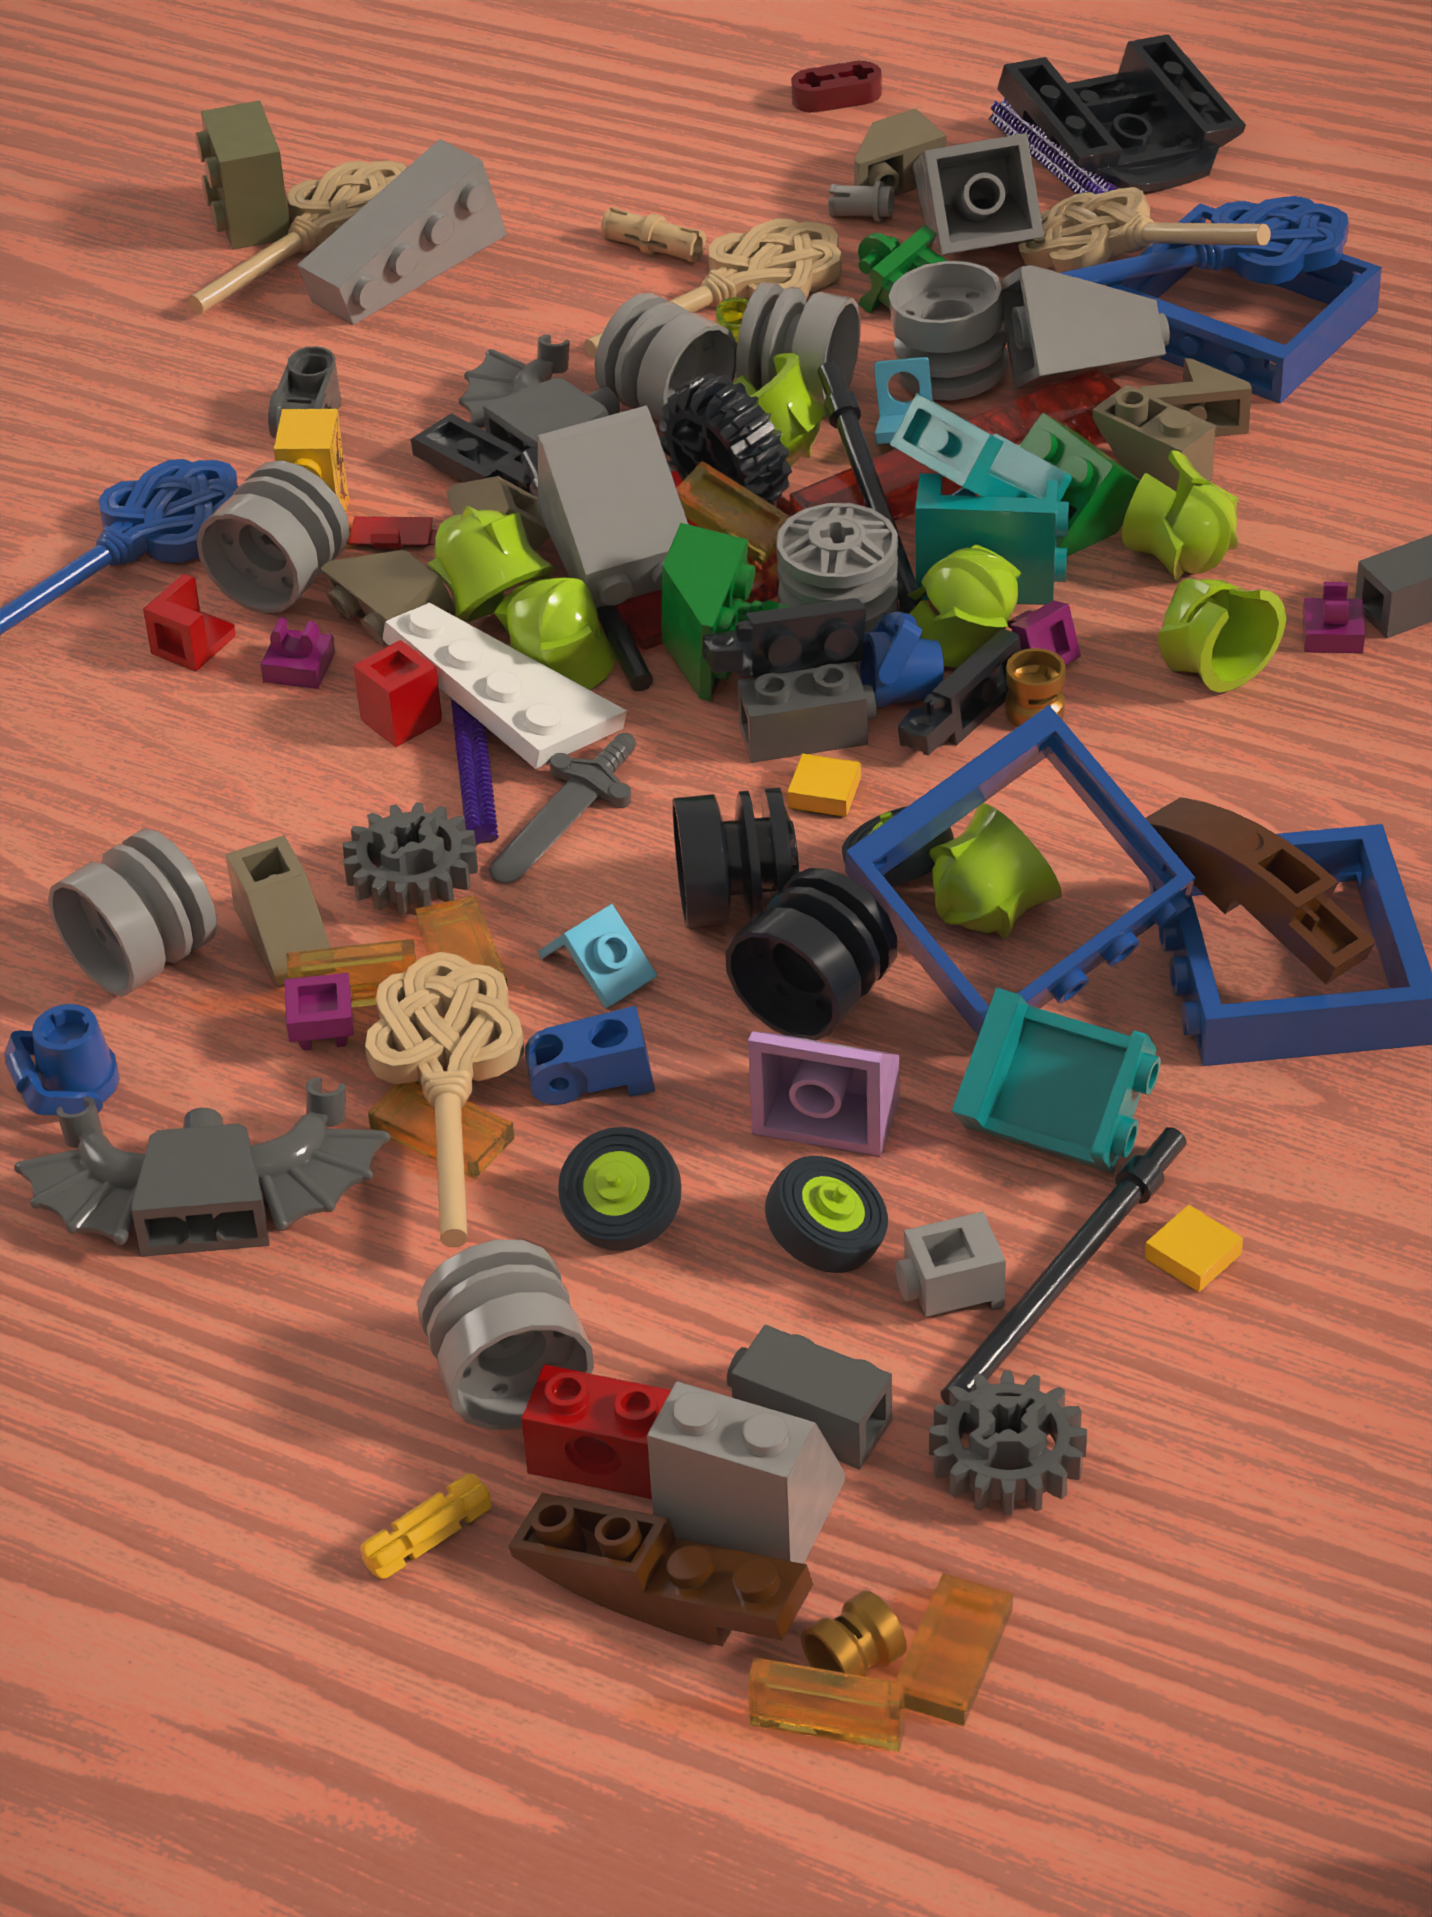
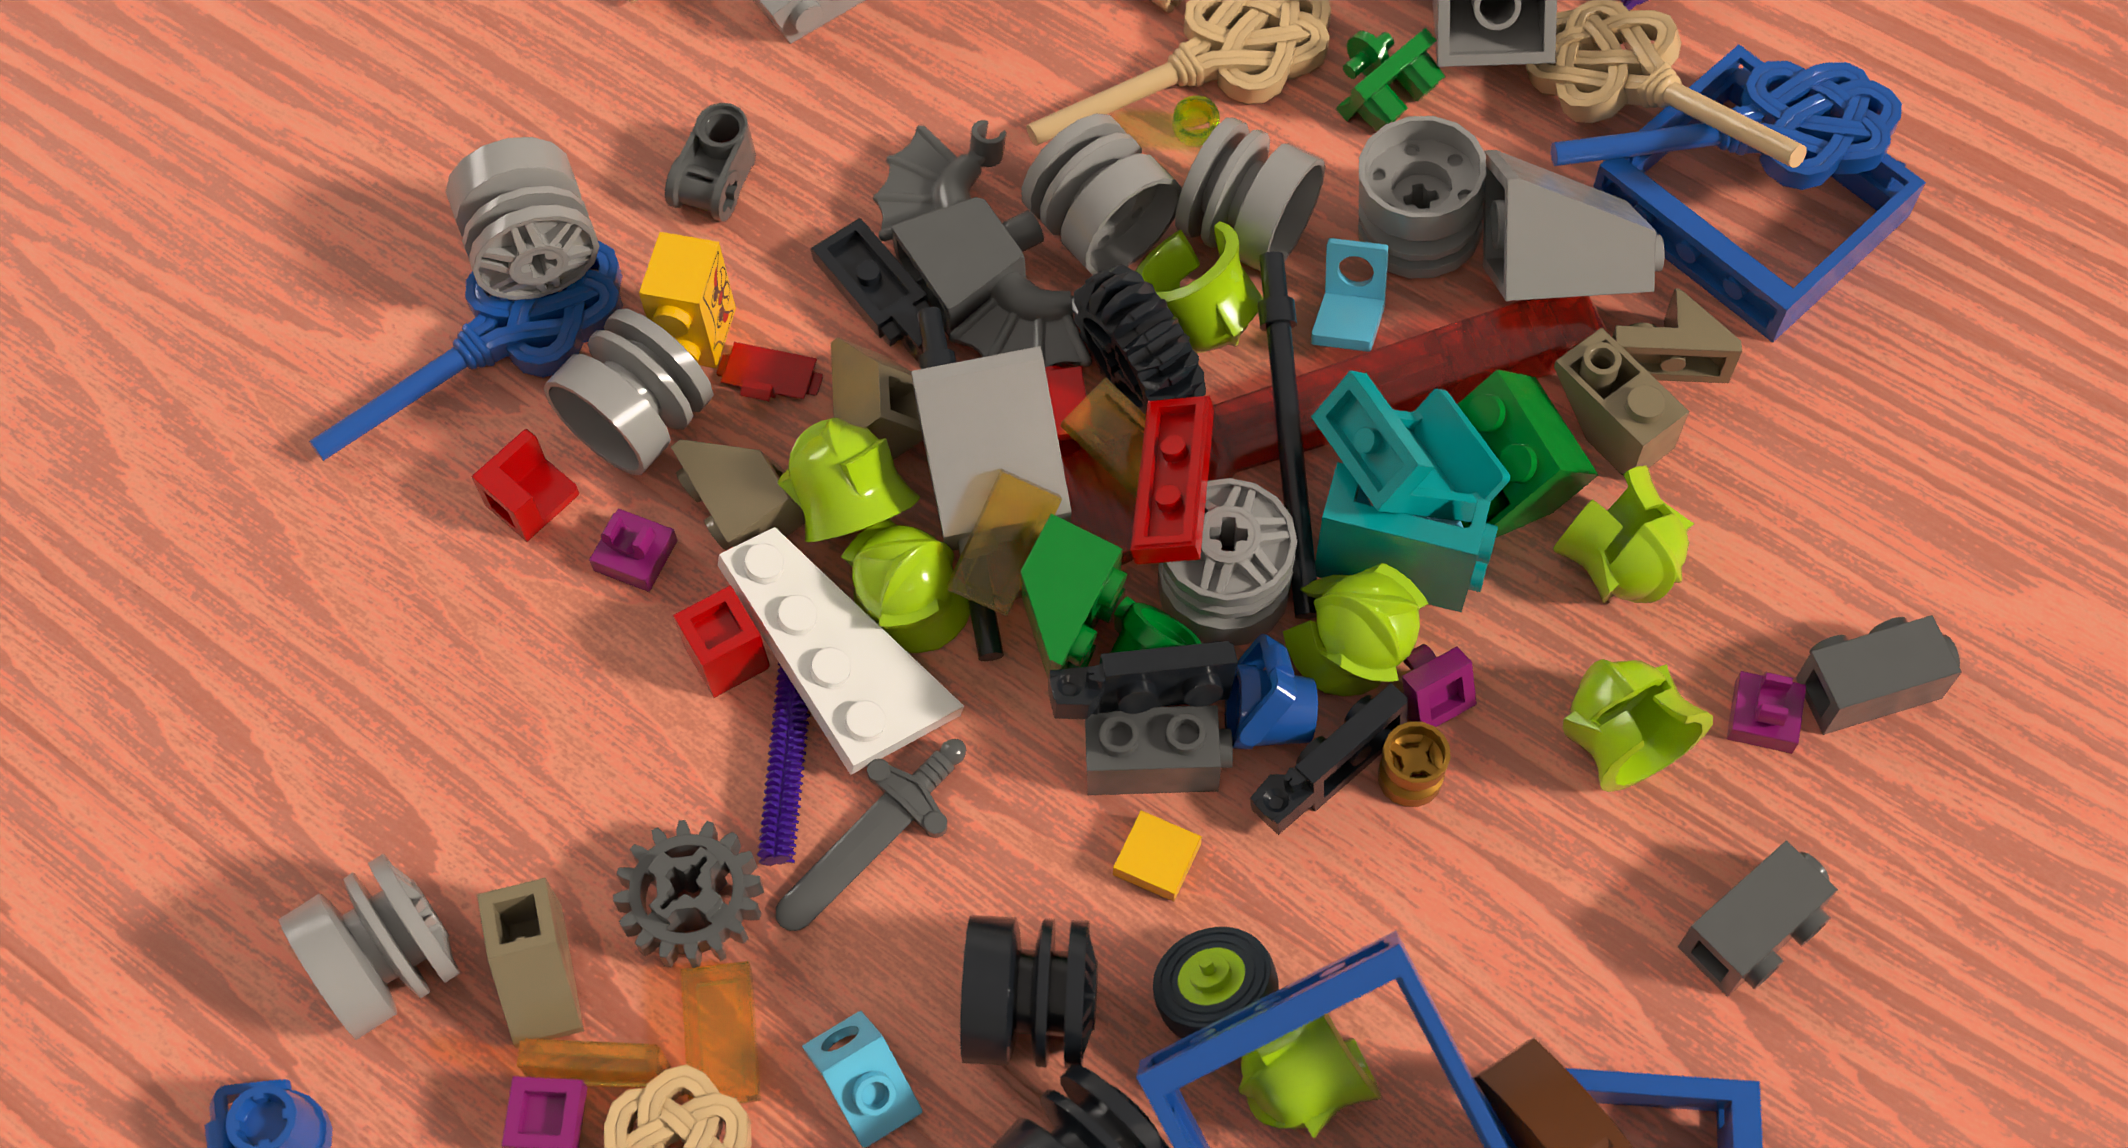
camera: 10 degrees right, 20 degrees up
(150, 427) = (522, 218): none -> light grey wheel
(635, 575) = (1002, 541): none -> clear yellow tile
(779, 507) = (1173, 480): none -> red tile
(1357, 743) = (1758, 917): none -> dark grey brick

